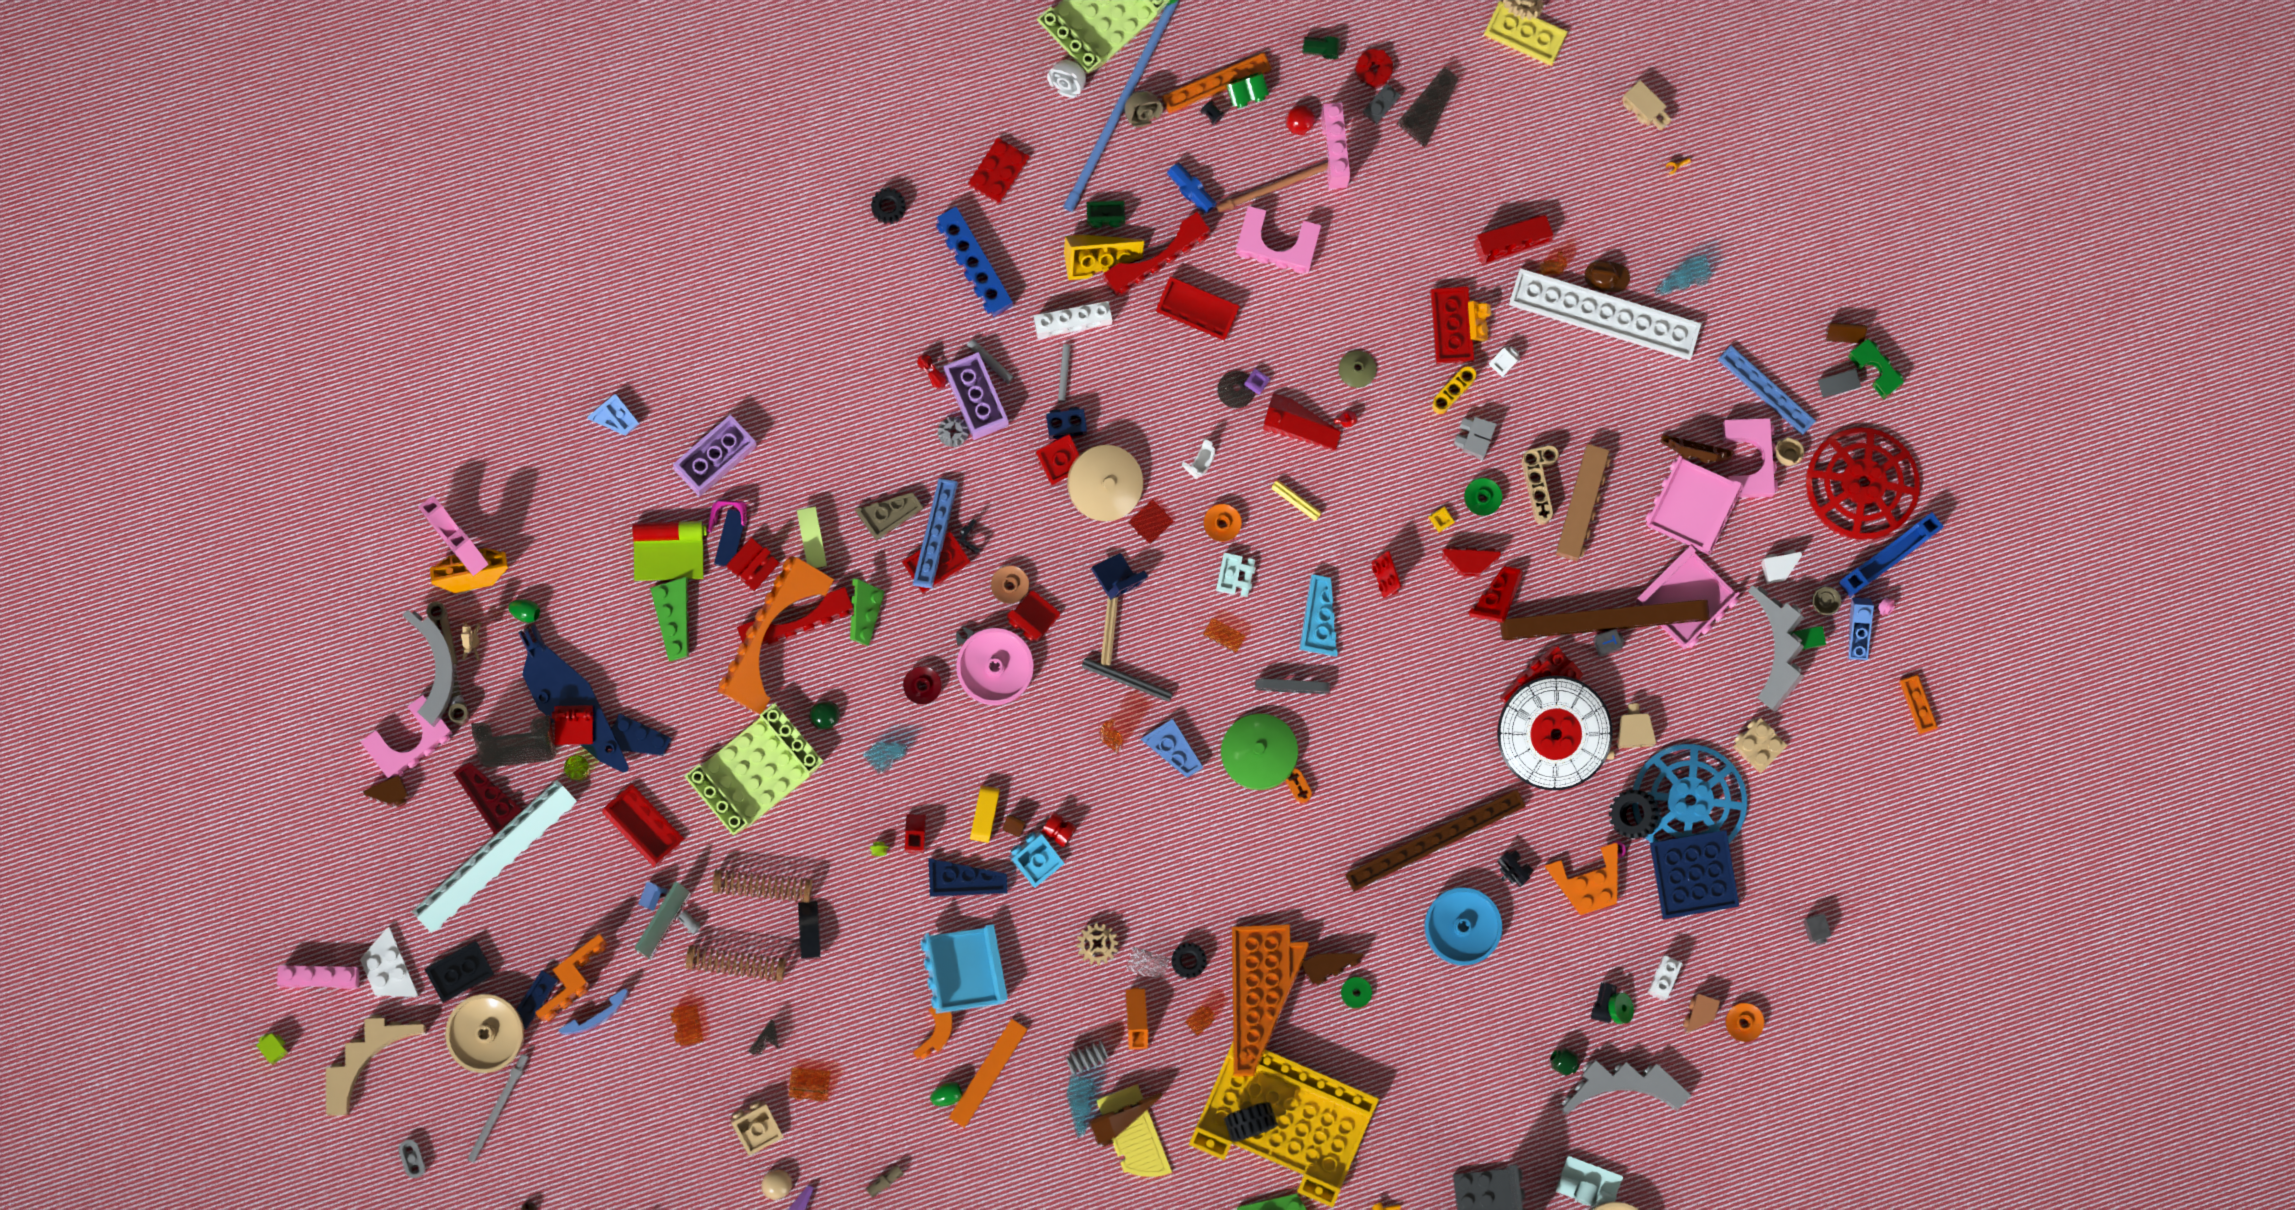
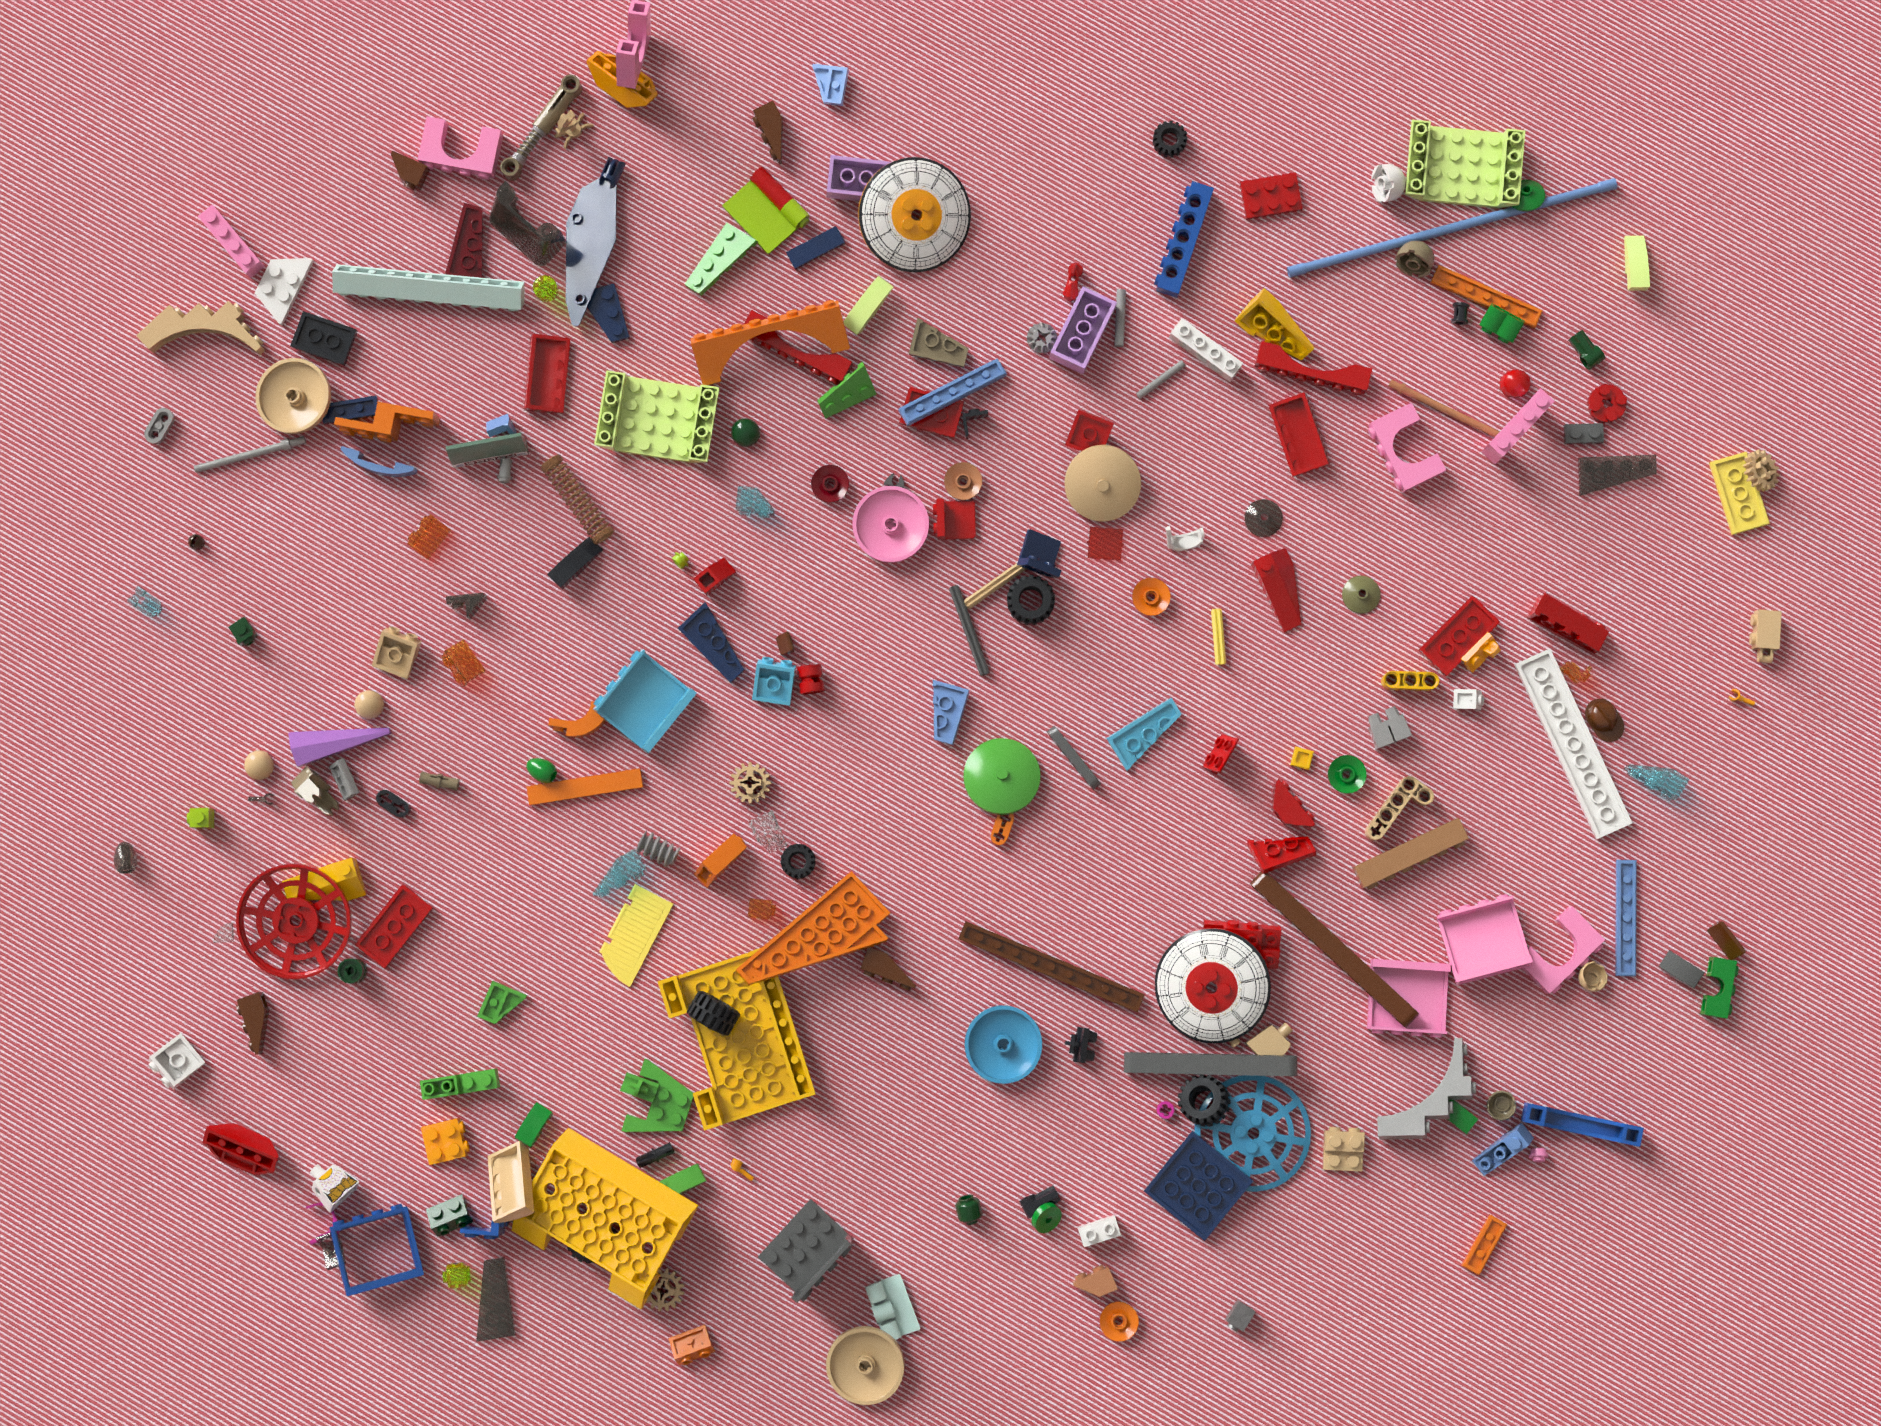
camera: 60 degrees right, 5 degrees up
(272, 1047) = (152, 254): lime brick -> none
(443, 684) = (532, 126): light grey arch -> none
(524, 610) = (628, 147): green animal -> none
(573, 725) = (574, 257): red hinge -> none
(606, 489) = (771, 124): none -> reddish brown slope
(740, 505) = (845, 232): dark pink helmet -> none
(749, 447) = (888, 222): none -> dish
(752, 564) = (809, 280): red bracket -> none
(779, 975) = (480, 494): medium nougat piece -> none
(984, 814) = (774, 614): yellow beam -> none
(1066, 427) = (1120, 417): dark blue brick -> none
(1105, 213) = (1309, 303): dark green bracket -> none
(1109, 738) = (913, 659): clear orange bracket -> none
(1113, 1124) = (624, 912): reddish brown wedge -> none
(1145, 597) = (1038, 585): none -> black tyre
(1191, 188) = (1387, 349): blue piece -> none
(1224, 635) = (1067, 673): clear orange plate -> none
(1229, 574) = (1117, 636): light aqua plate -> none
(1257, 381) = (1283, 528): medium lavender tile -> none
(1346, 419) = (1314, 620): red piece -> none
(1356, 1001) = (876, 1002): green piece -> none
(1590, 890) = (1117, 1116): orange wing -> none
(1608, 642) = (1319, 966): flat silver brick -> none
(1611, 785) = (1210, 1064): none -> dark grey beam
(1626, 1078) = (1012, 1290): light grey arch -> none
(1694, 449) = (1532, 910): reddish brown wing -> none
(1779, 567) = (1495, 1047): white slope -> none
(1857, 493) = (1607, 1051): red dish -> none

